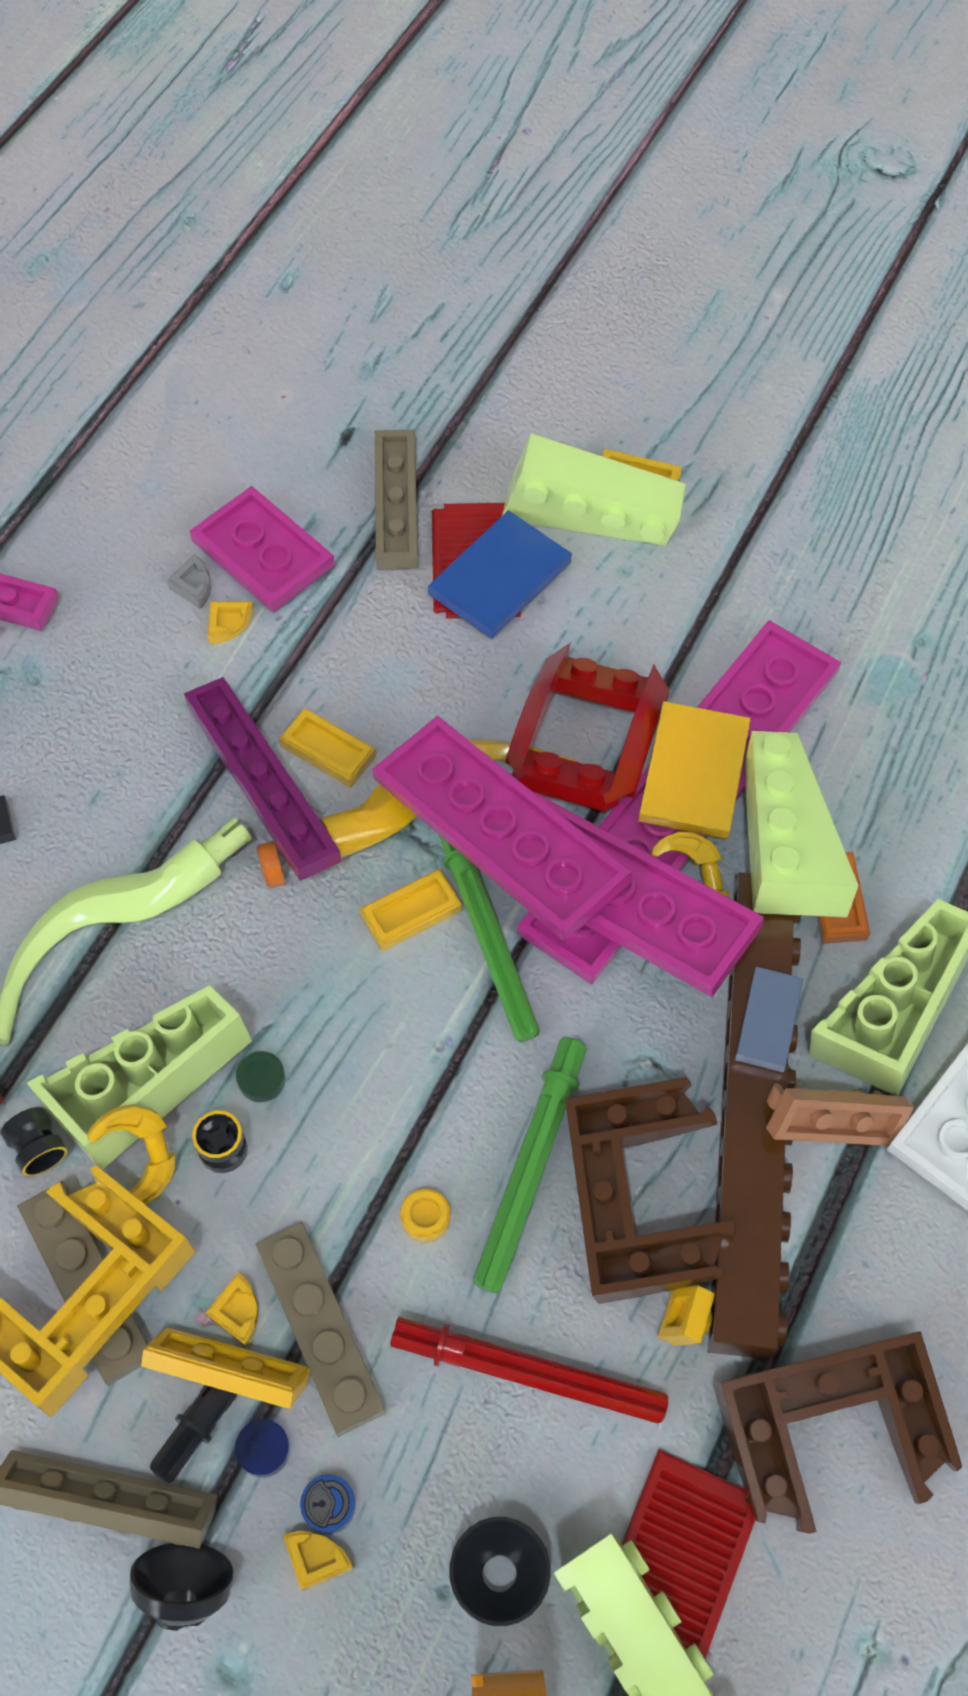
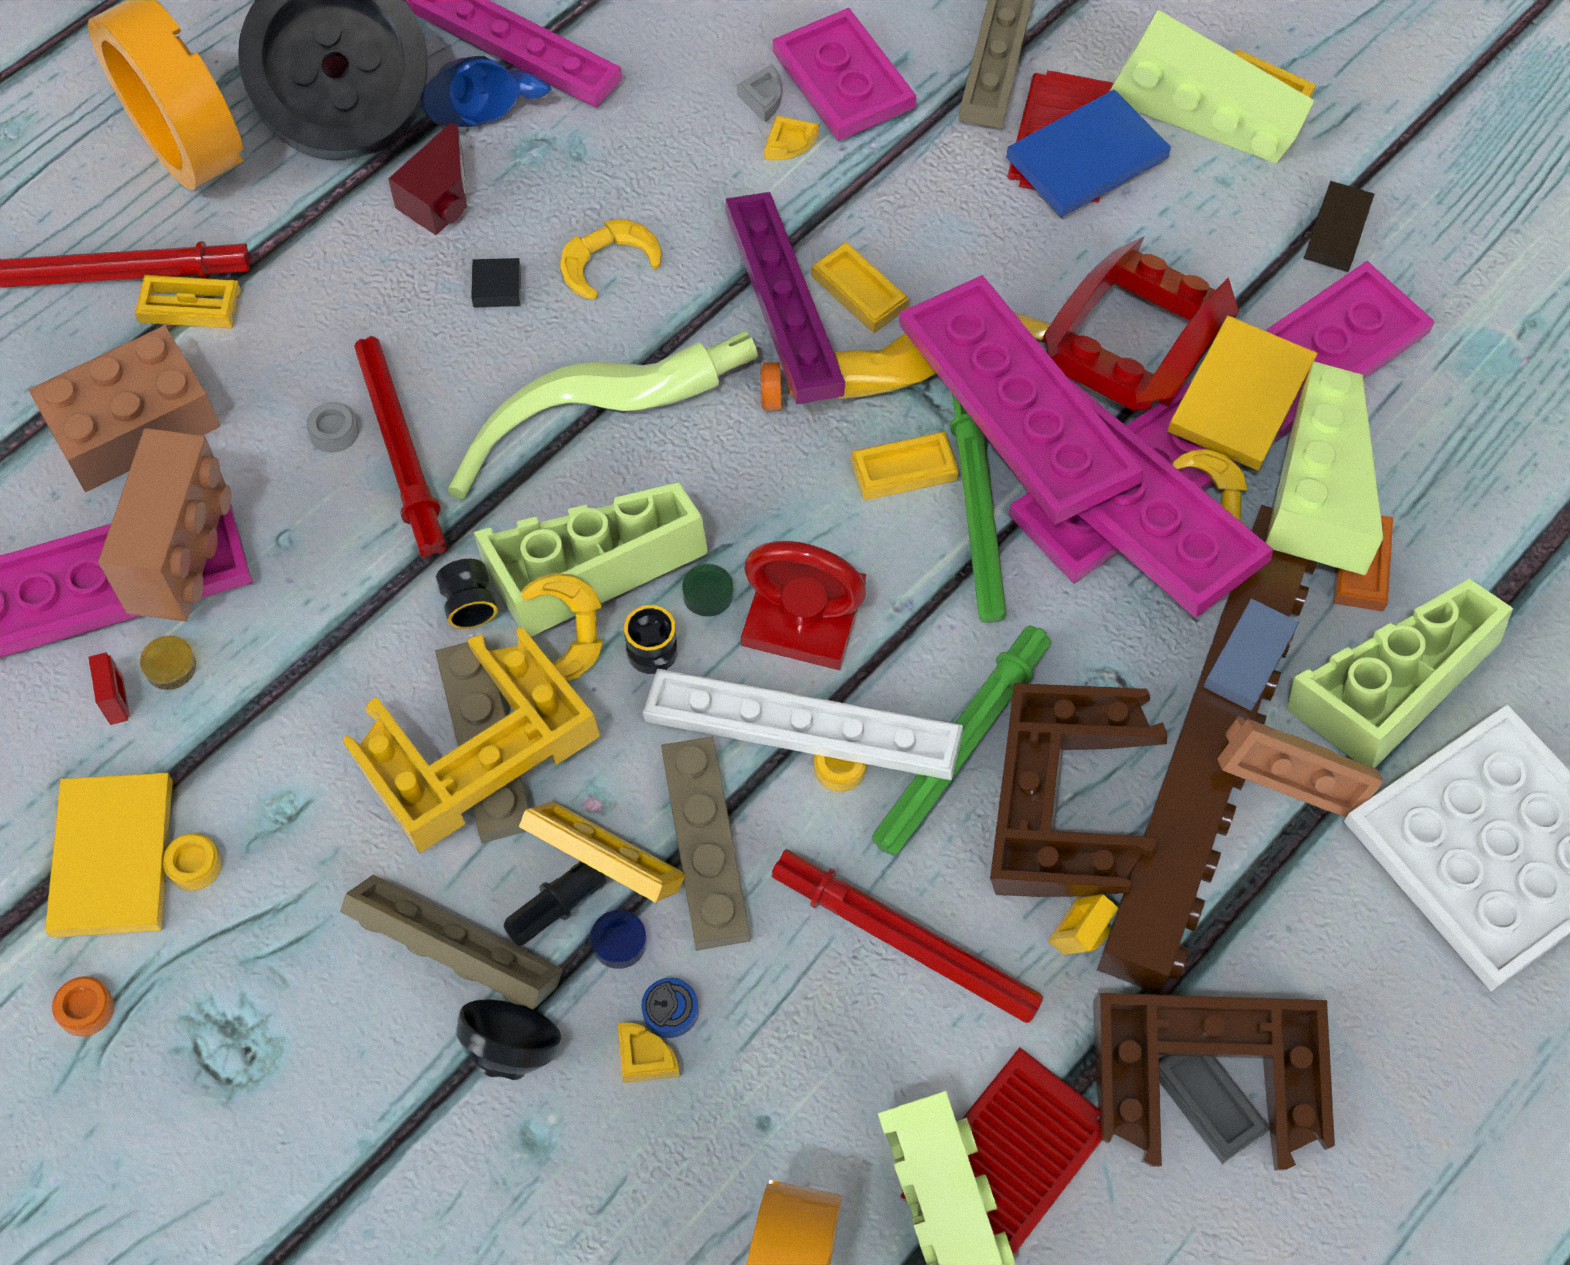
camera: 15 degrees right, 0 degrees up
(58, 775) = (622, 232): none -> yellow piece
(236, 1310) = (625, 804): yellow tile -> none
(352, 1072) = (802, 602): none -> red tile
(382, 1188) = (804, 724): none -> white tile
(510, 1540) = (828, 1083): black piece -> none
(735, 592) = (1339, 226): none -> dark brown tile
(844, 1455) = (1212, 1104): none -> dark grey tile

